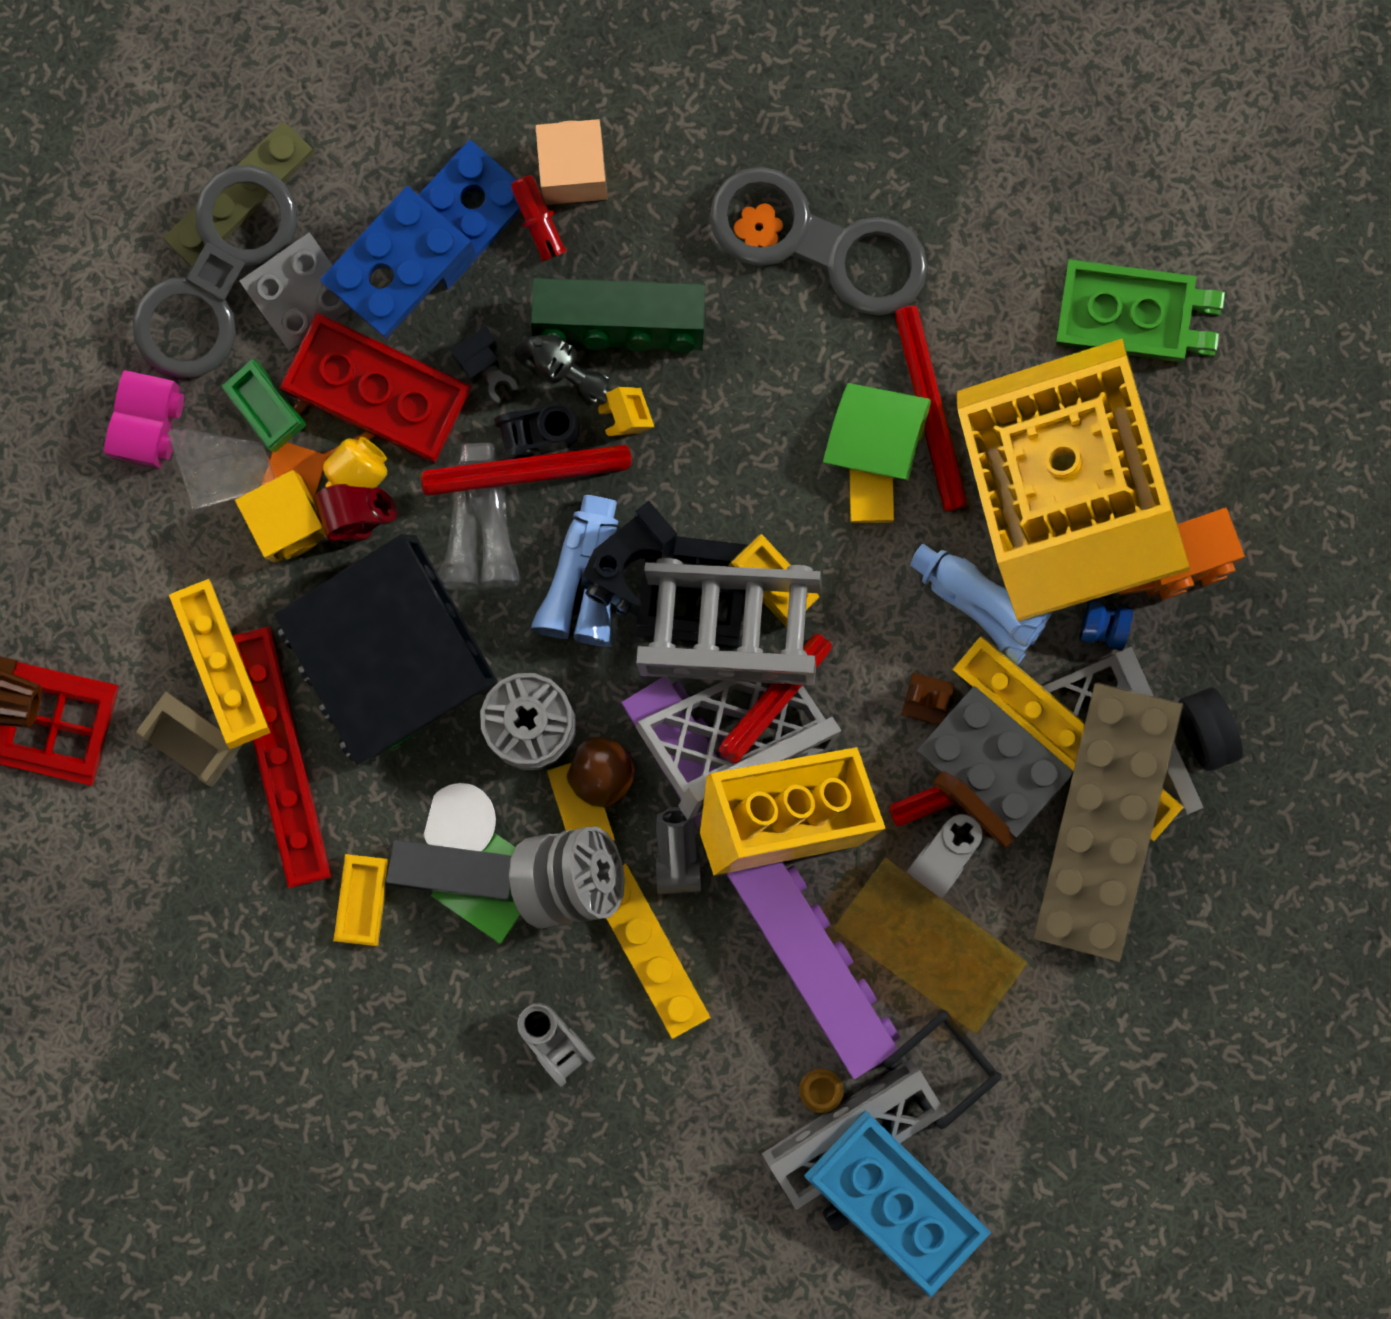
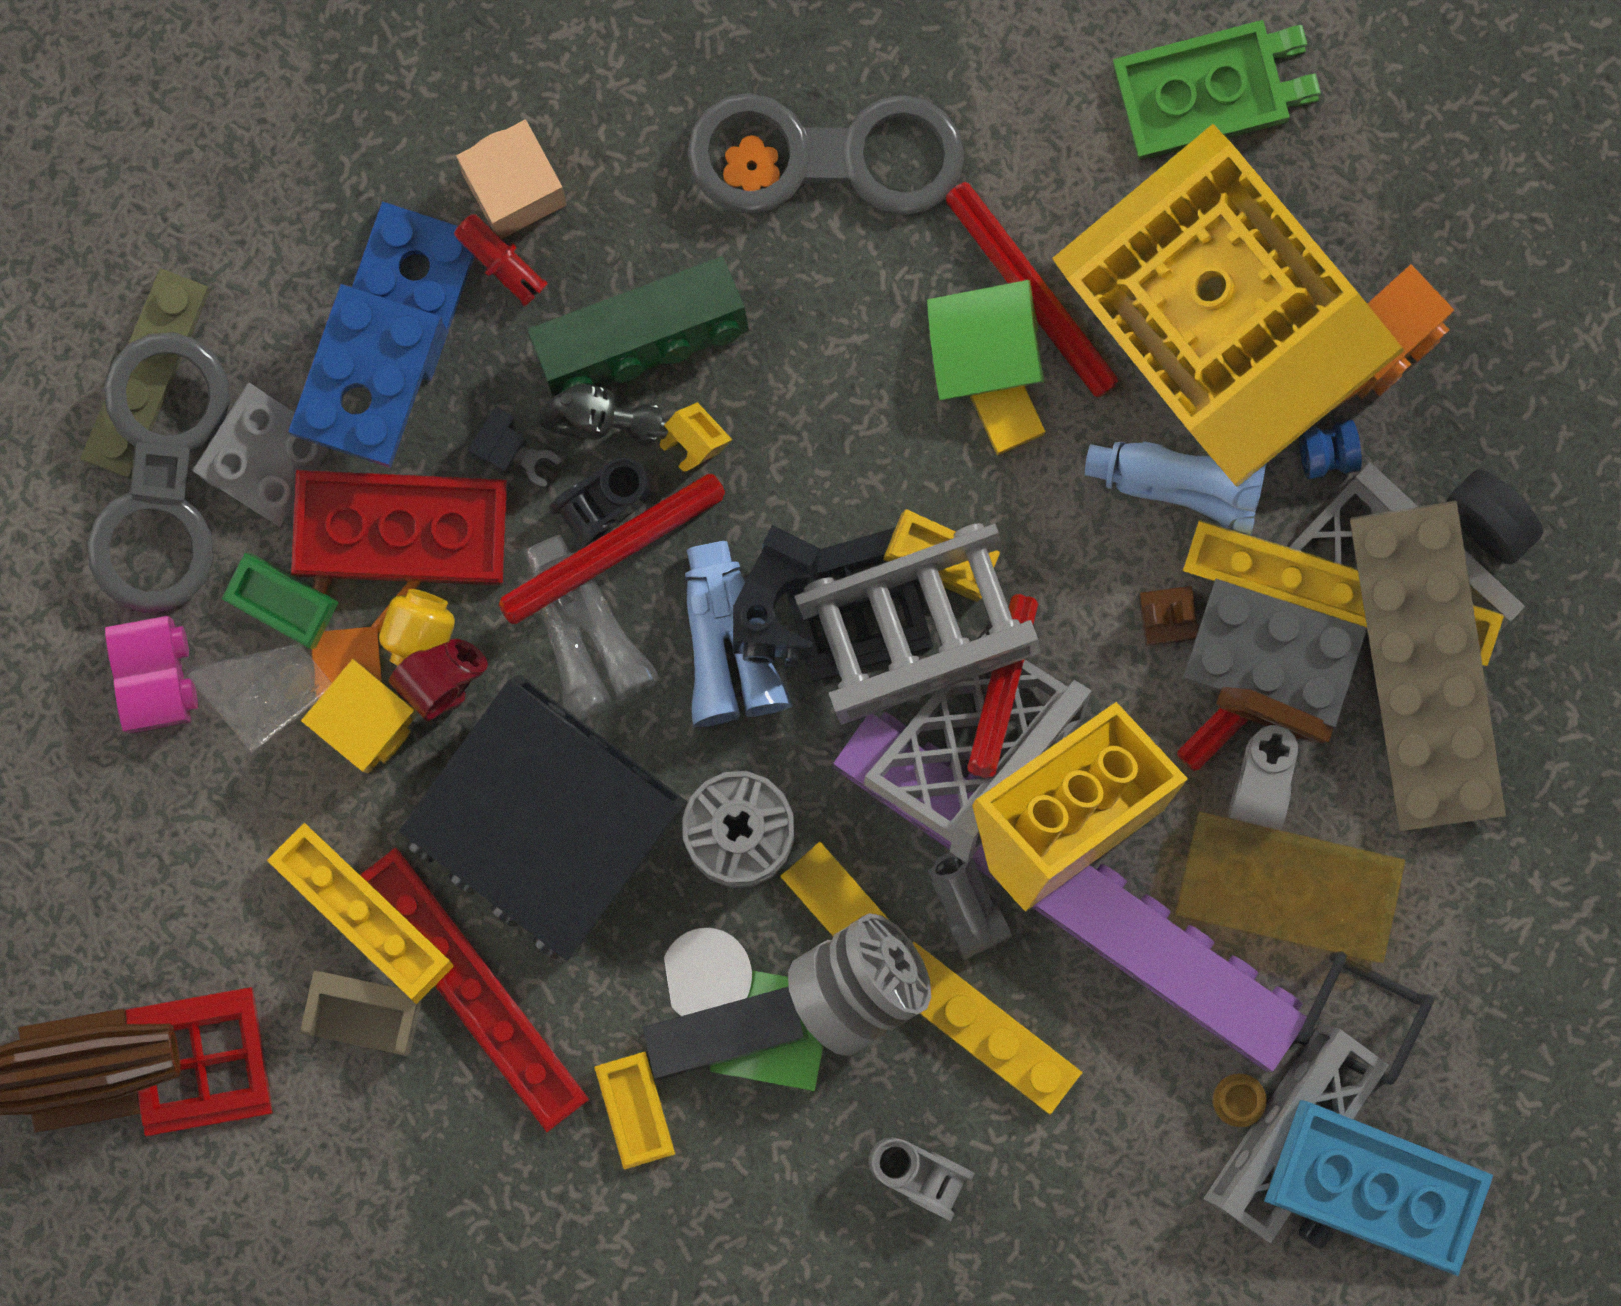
camera: 30 degrees left, 0 degrees up
(601, 772) = (842, 851): reddish brown hair -> none

